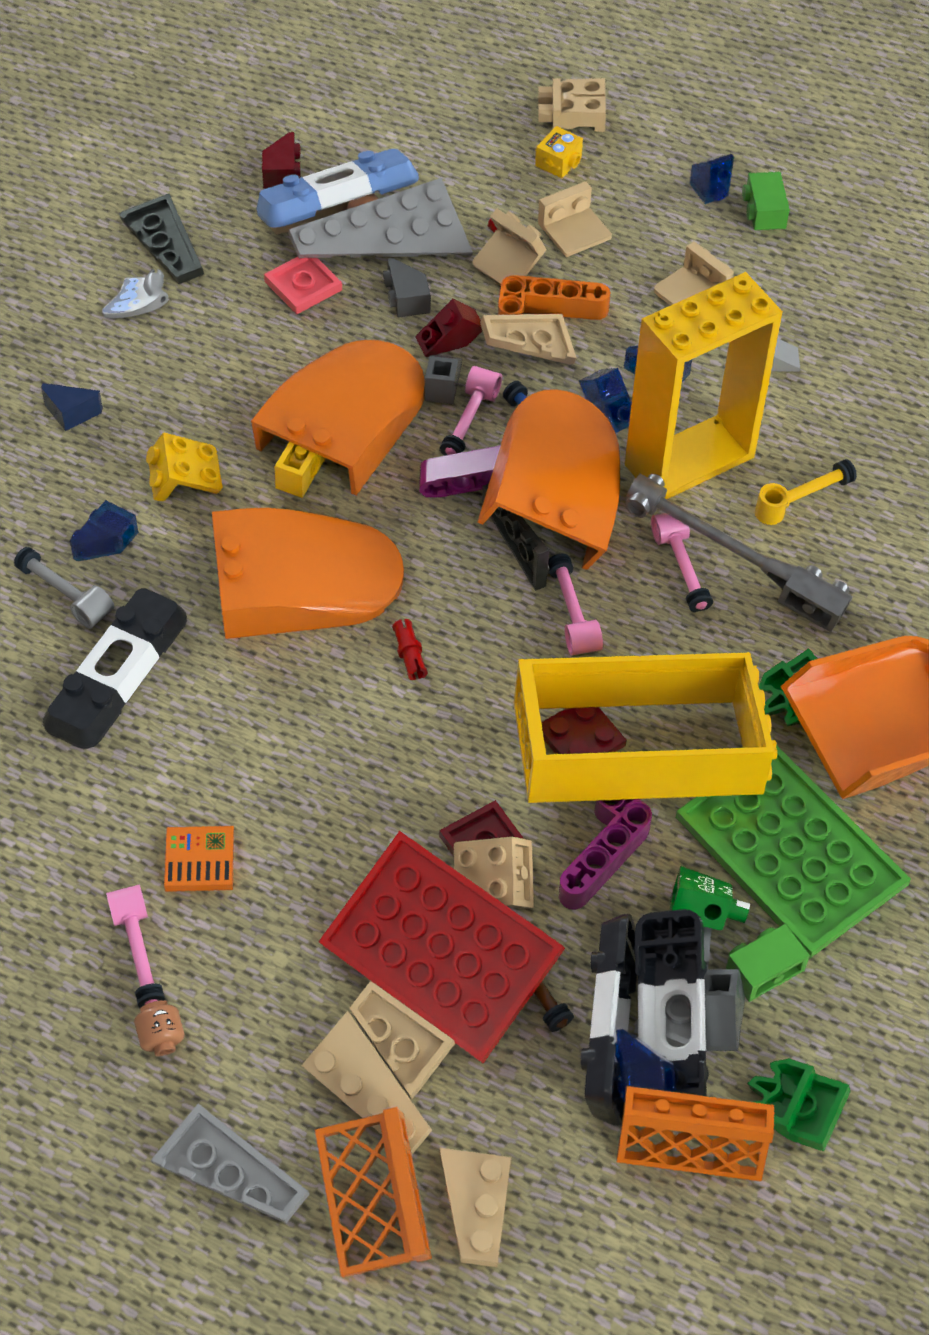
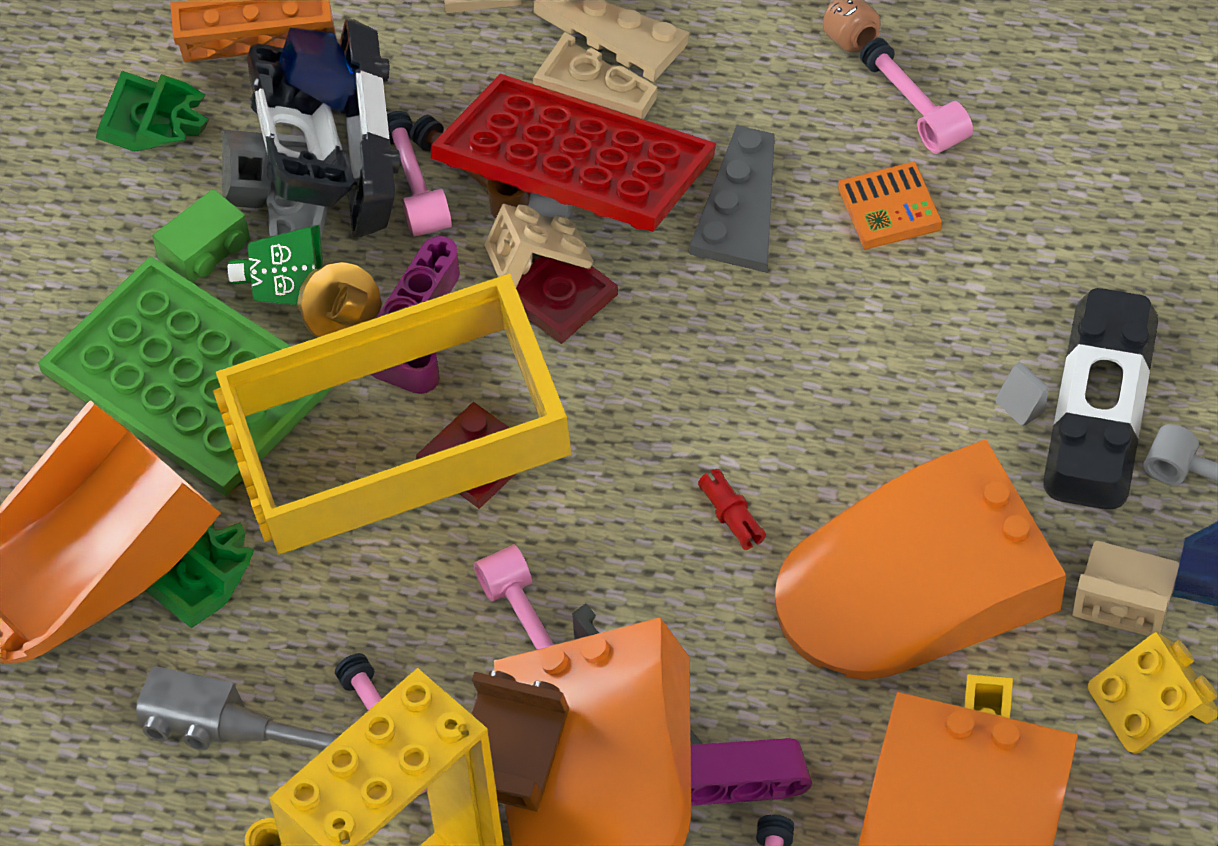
camera: 170 degrees right, 0 degrees up
(171, 528) = (1125, 589): none -> tan bracket
(171, 676) = (1023, 395): none -> light grey slope
(318, 888) = (738, 209): none -> dark grey wing
(578, 939) = (425, 209): none -> bright pink piece
(616, 466) = (522, 733): none -> reddish brown panel
(661, 852) = (337, 298): none -> pearl gold tile

